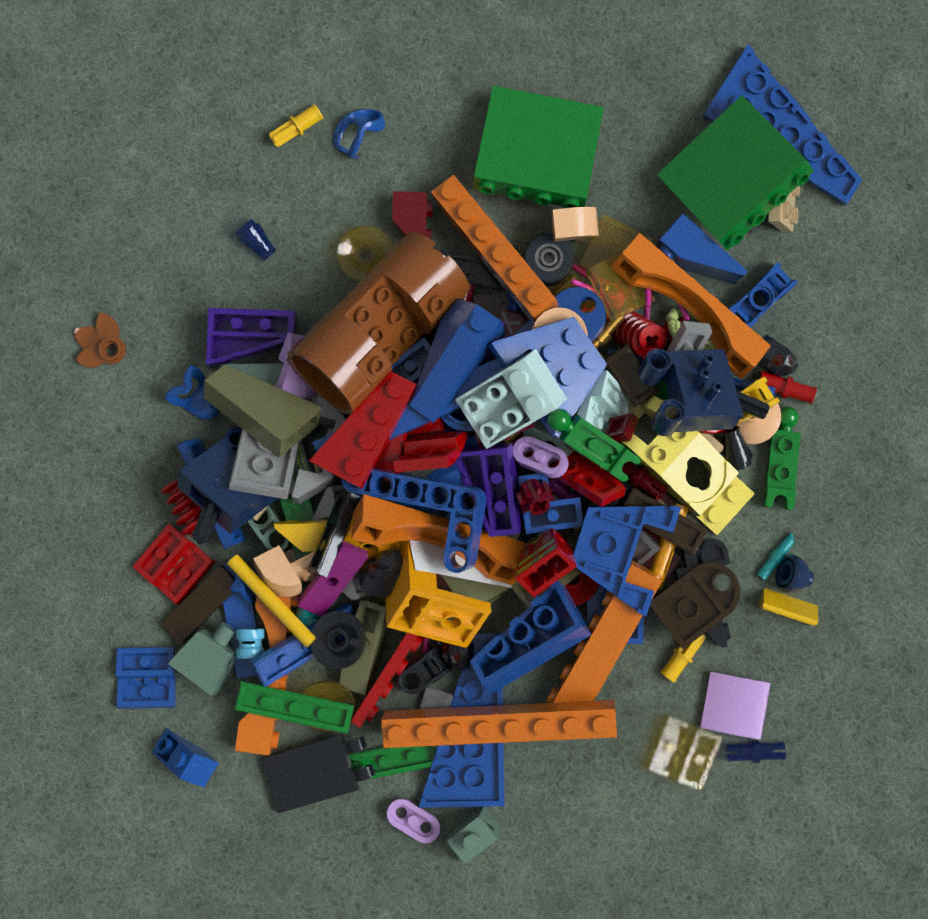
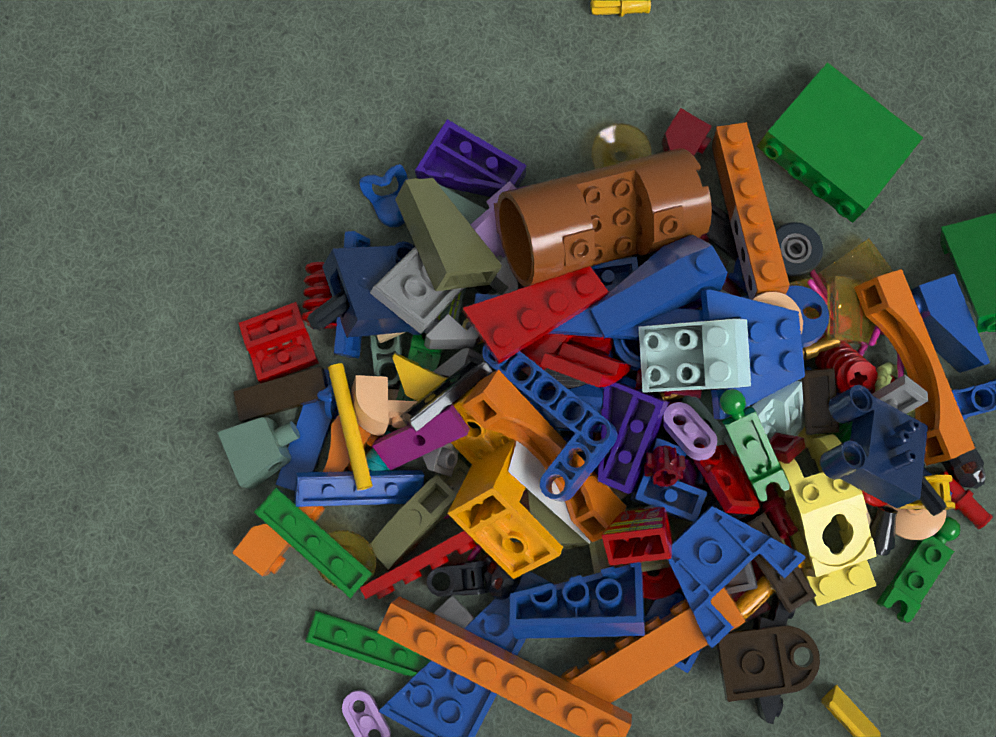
camera: 30 degrees right, 5 degrees down
(97, 340) = (326, 99): dark orange plate -> none
(146, 665) = (197, 423): blue slope -> none
(184, 758) = (181, 534): blue slope -> none
(249, 650) = (302, 463): medium azure wheel -> none
(255, 239) = (525, 84): clear blue cone -> none
(315, 772) = (297, 618): black tile -> none
(326, 645) = (386, 487): black dish -> none
(366, 120) = (691, 33): blue piece -> none
(381, 573) = (471, 459): black rock -> none
(574, 223) = (839, 228): light nougat brick -> none
(680, 659) = (716, 710): yellow axle -> none
(715, 552) = (806, 620): black tile -> none
(776, 557) = (864, 661): teal piece -> none
(793, 574) = (873, 687): dark blue brick -> none

